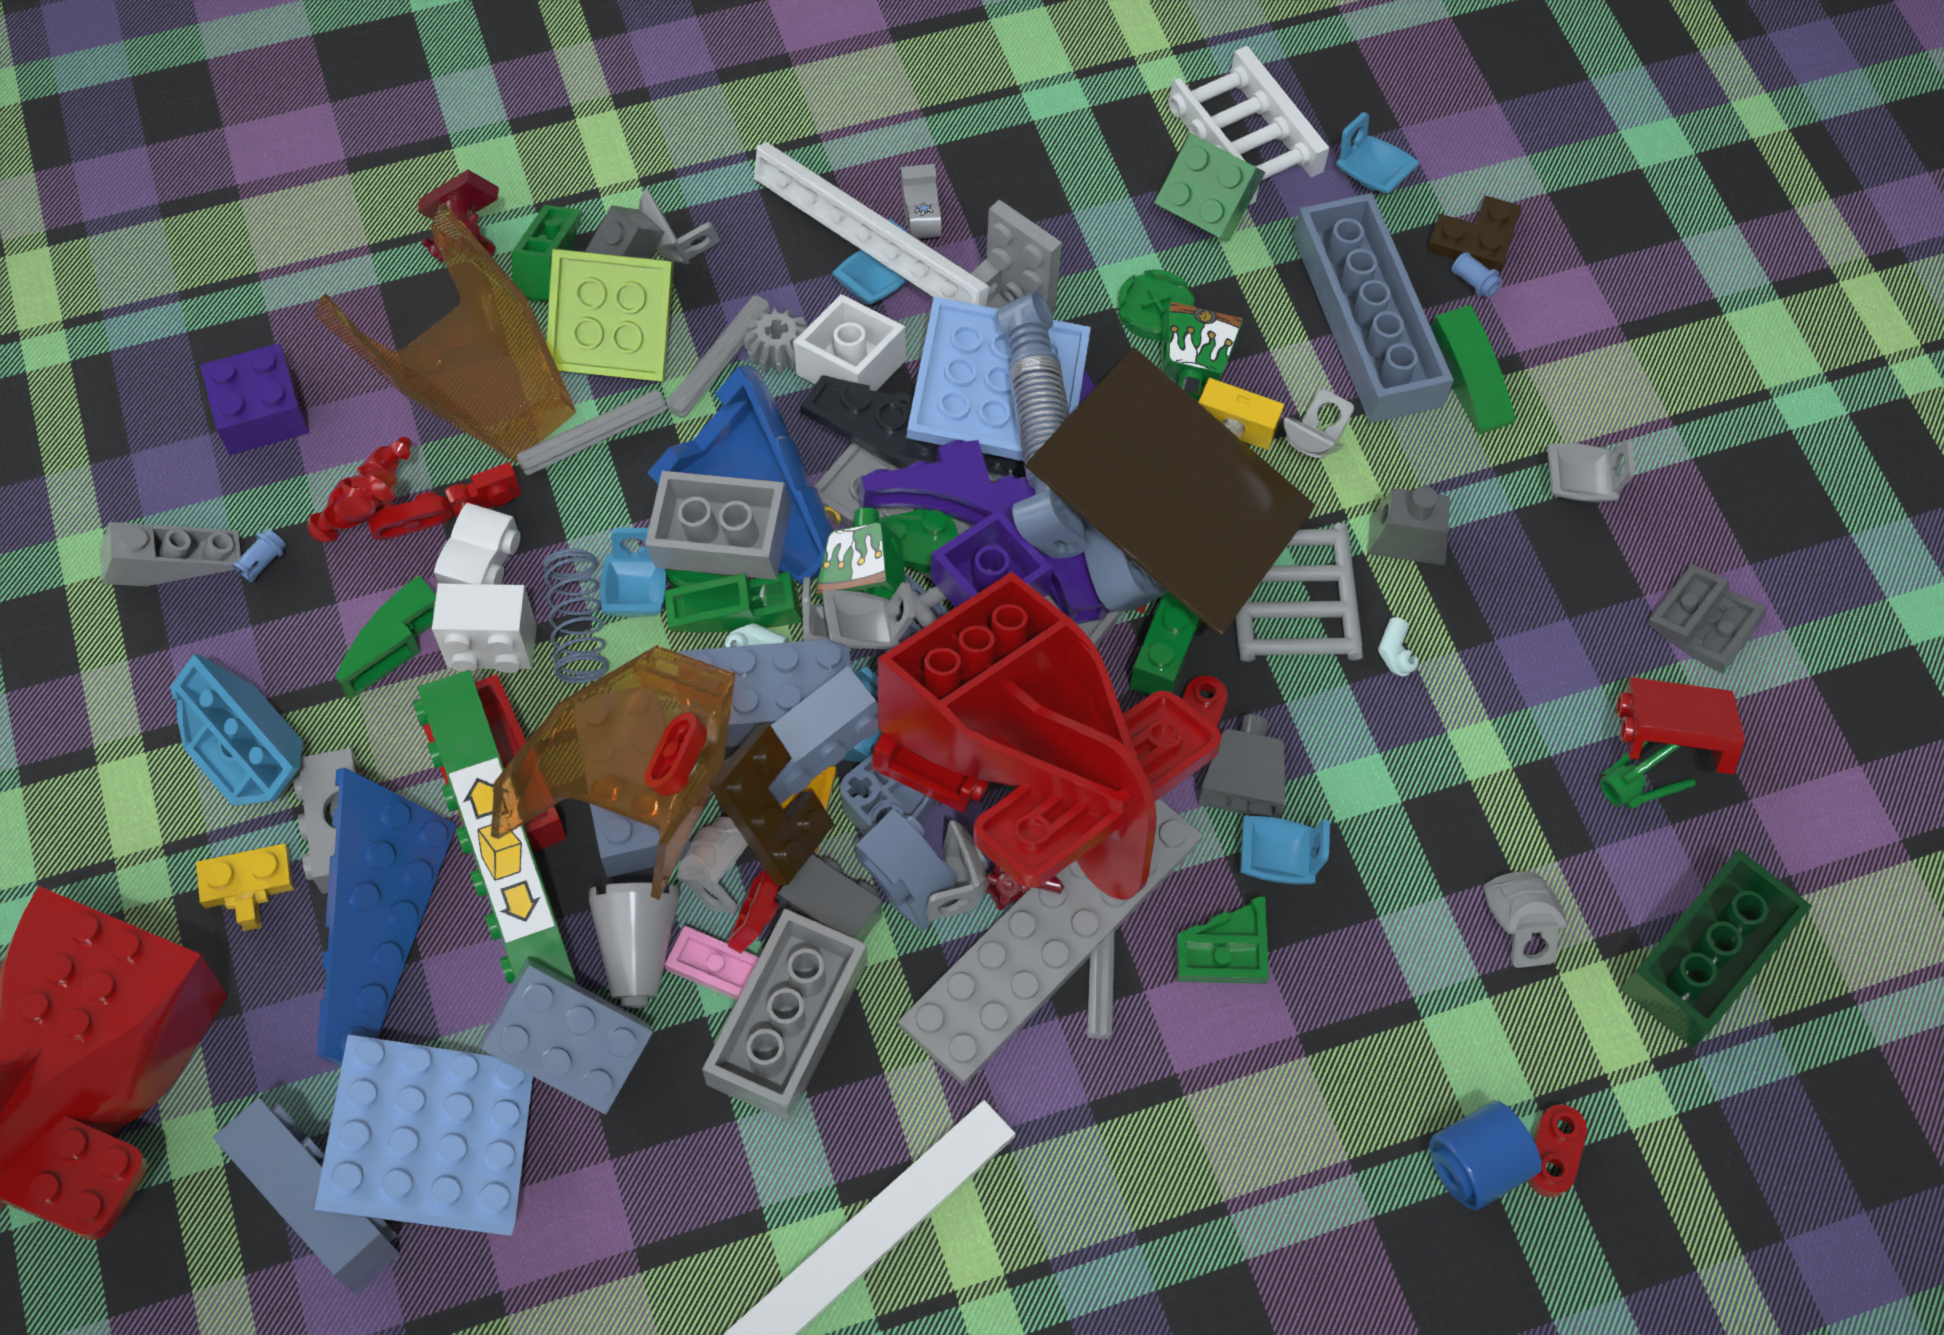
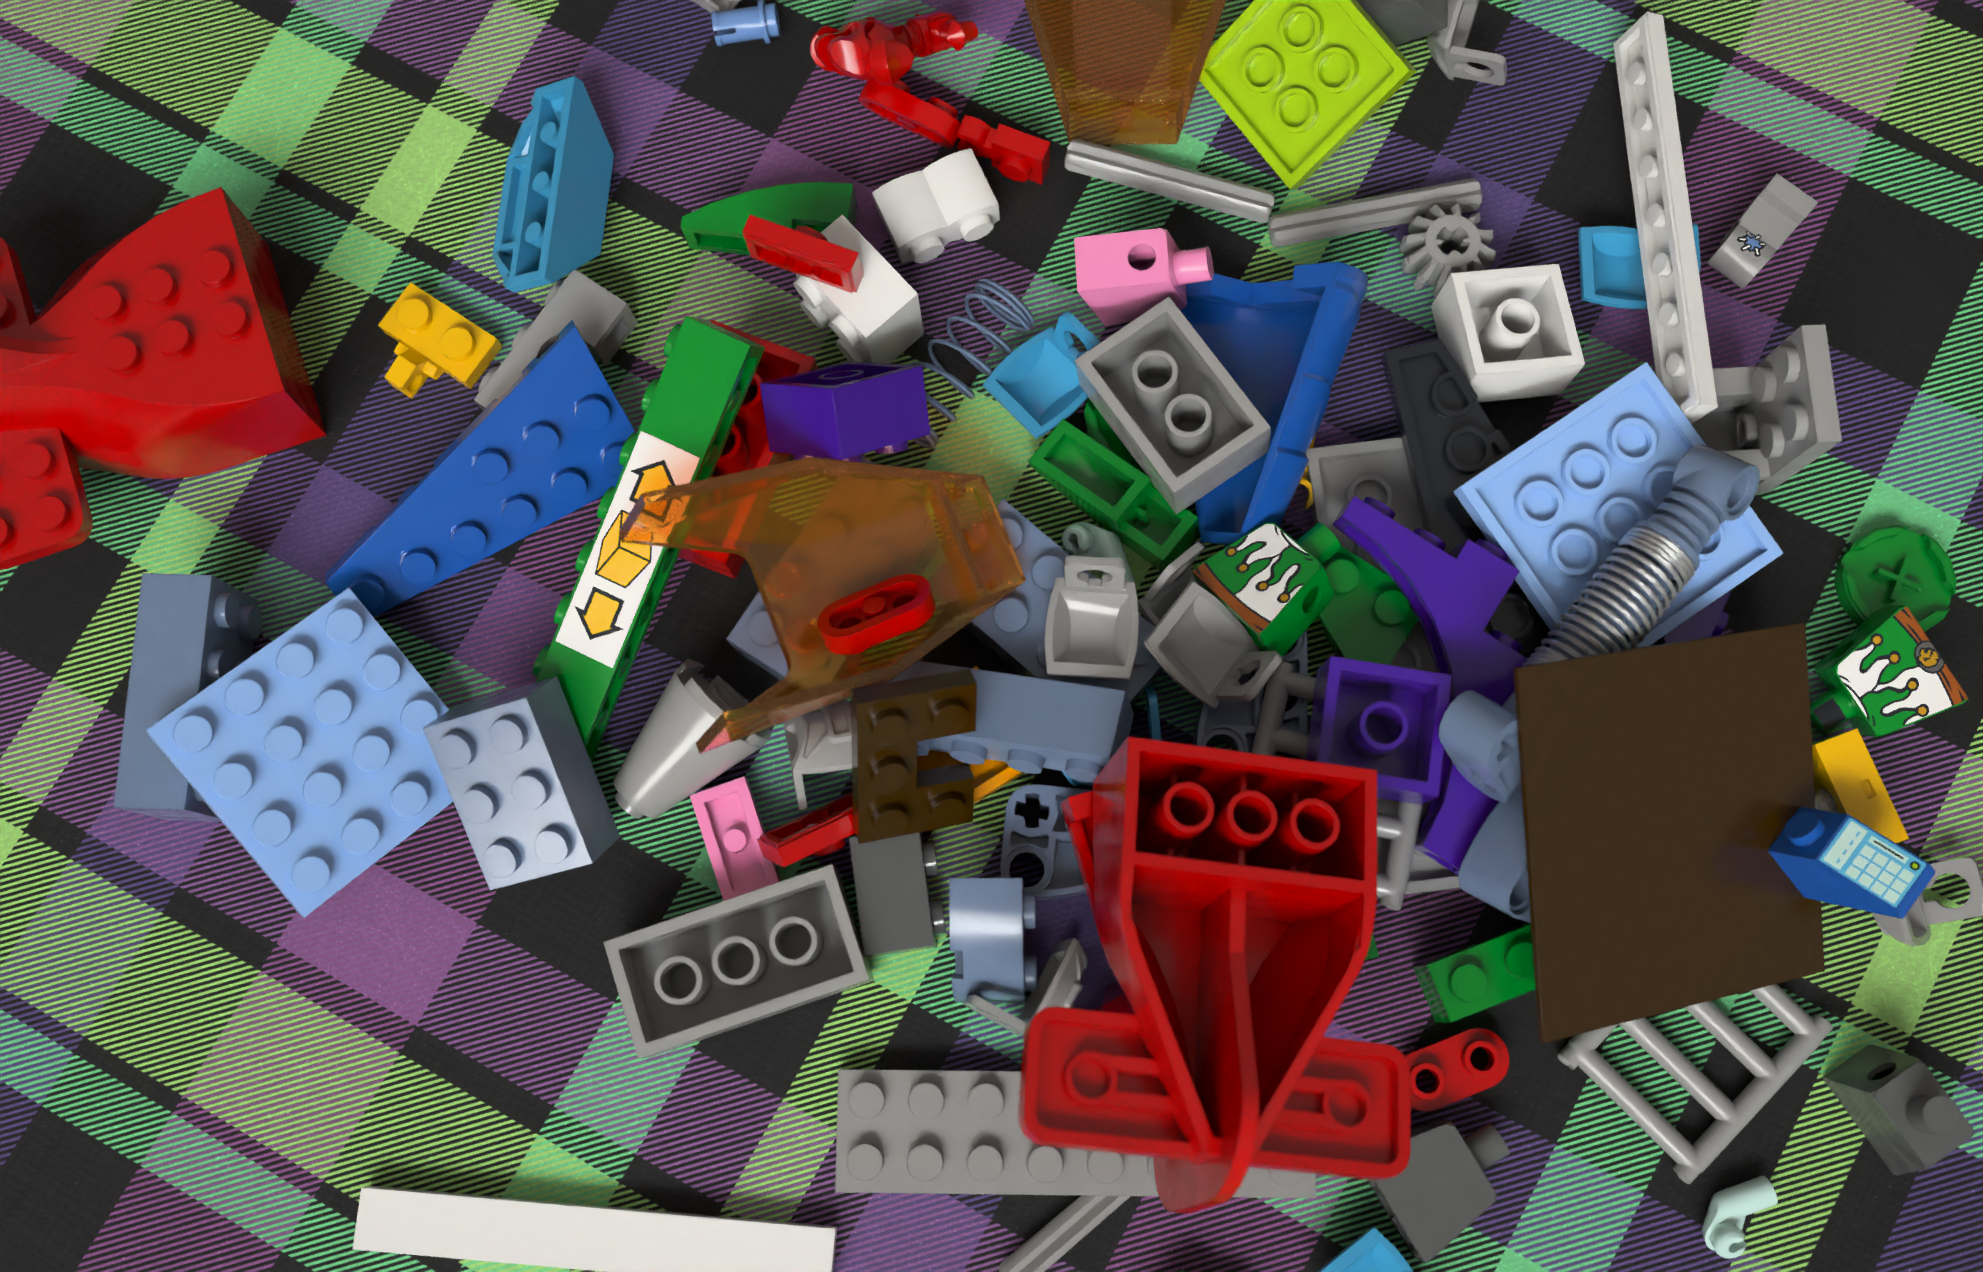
camera: 55 degrees right, 15 degrees up
(441, 614) = (803, 253): none -> red plate
(545, 676) = (846, 410): none -> dark purple brick
(629, 480) = (1136, 270): none -> bright pink torso
(794, 655) = (1092, 621): none -> light grey piece
(1268, 434) = (1849, 864): none -> slope

